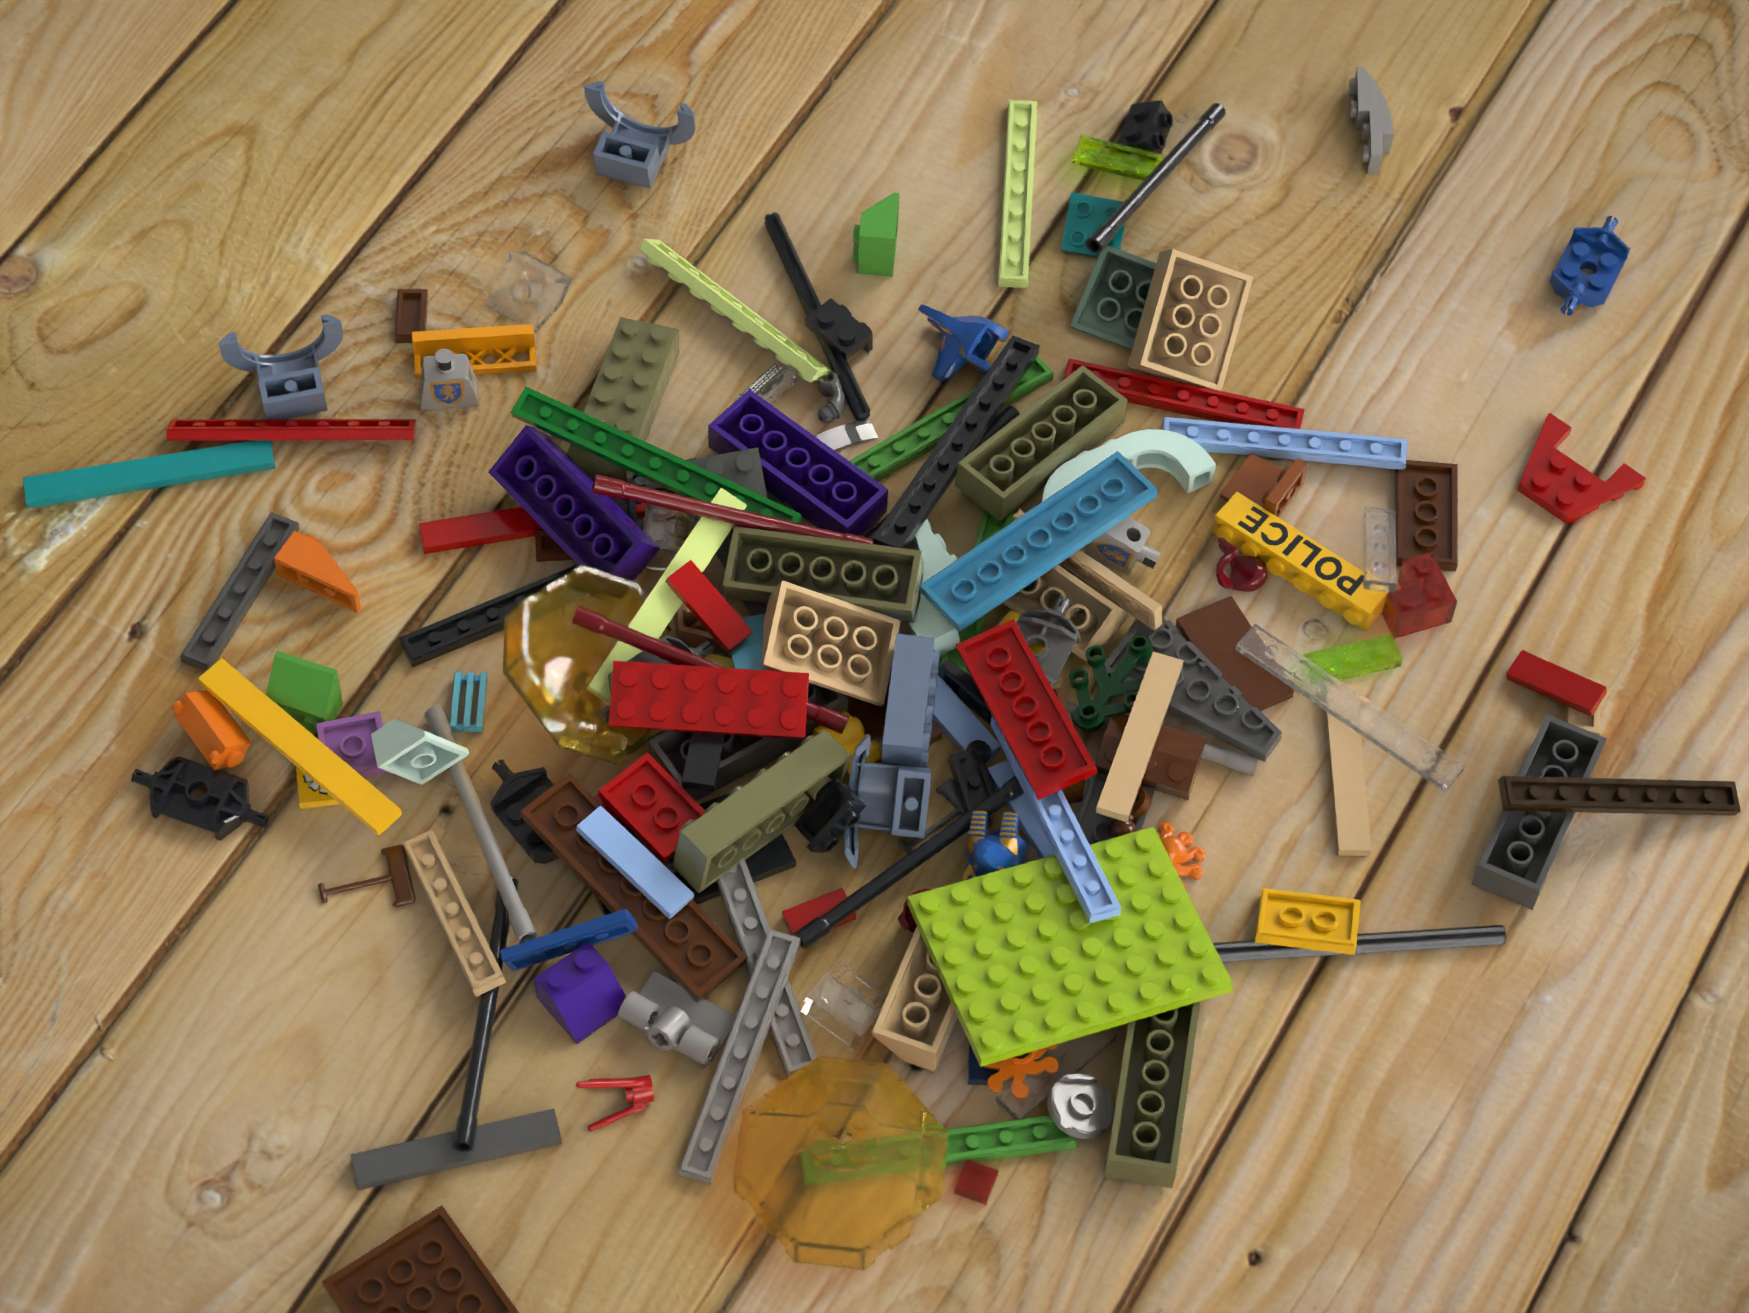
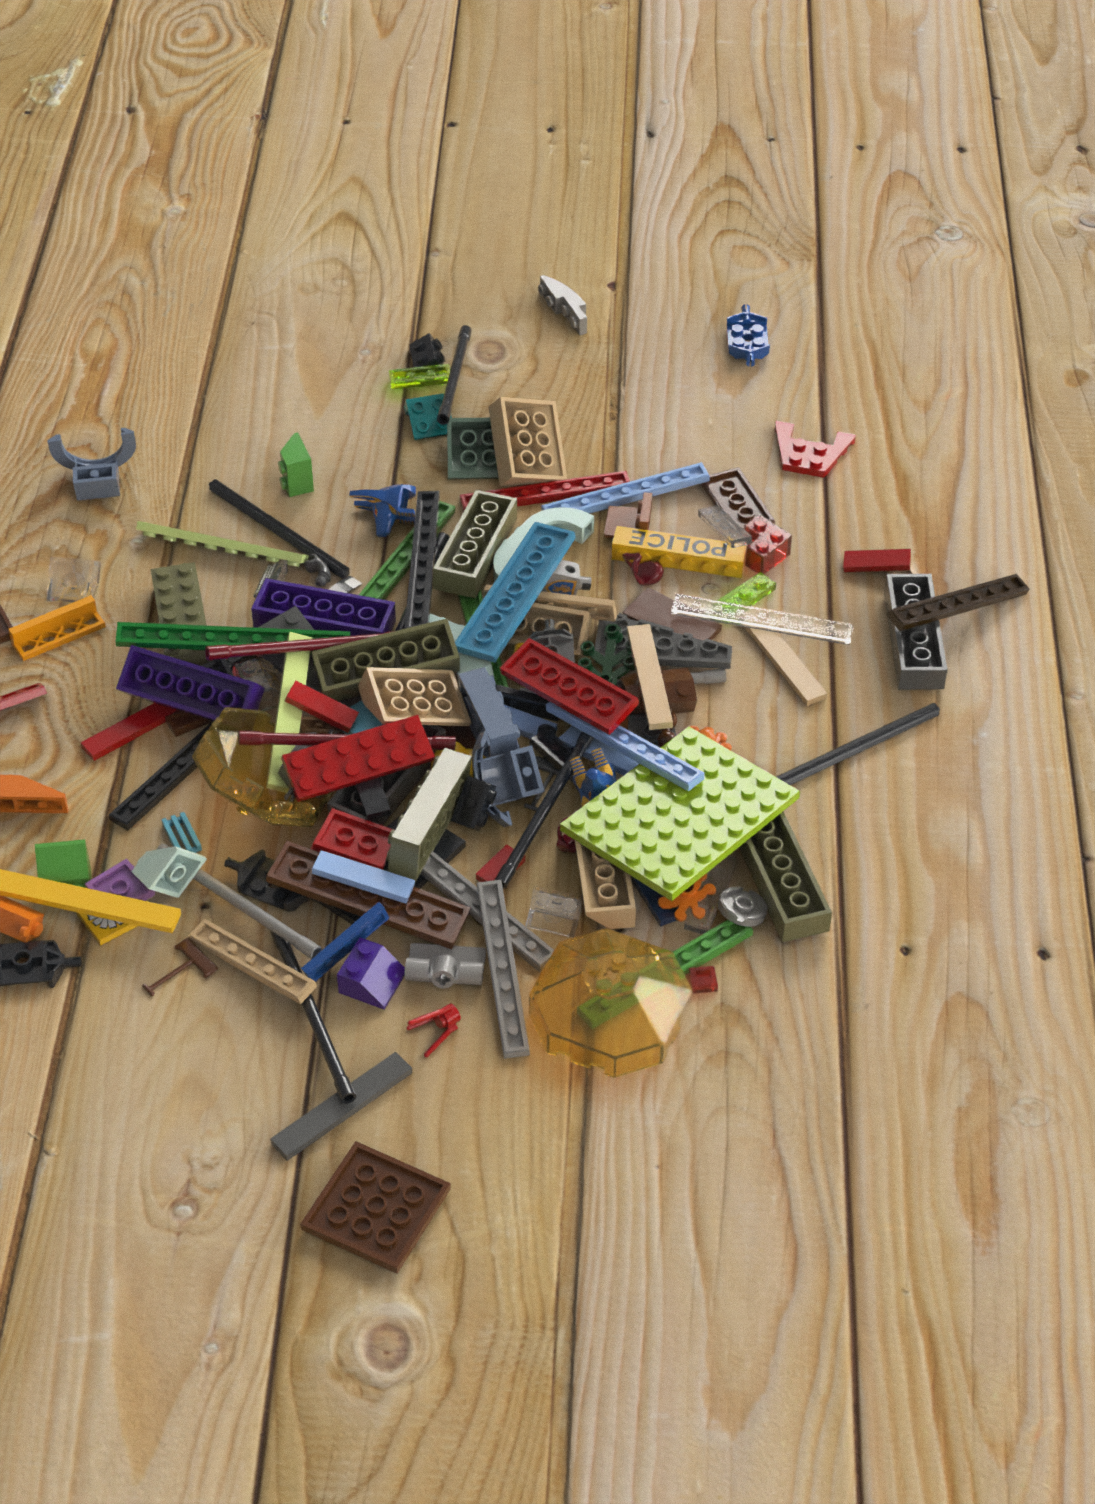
camera: 25 degrees left, 10 degrees down
(447, 382) = (49, 650): light grey torso -> none
(839, 329) = (301, 528): black bracket -> none
(1017, 194) = (367, 418): yellowish green tile -> none
(1308, 921) = (815, 746): yellow tile -> none

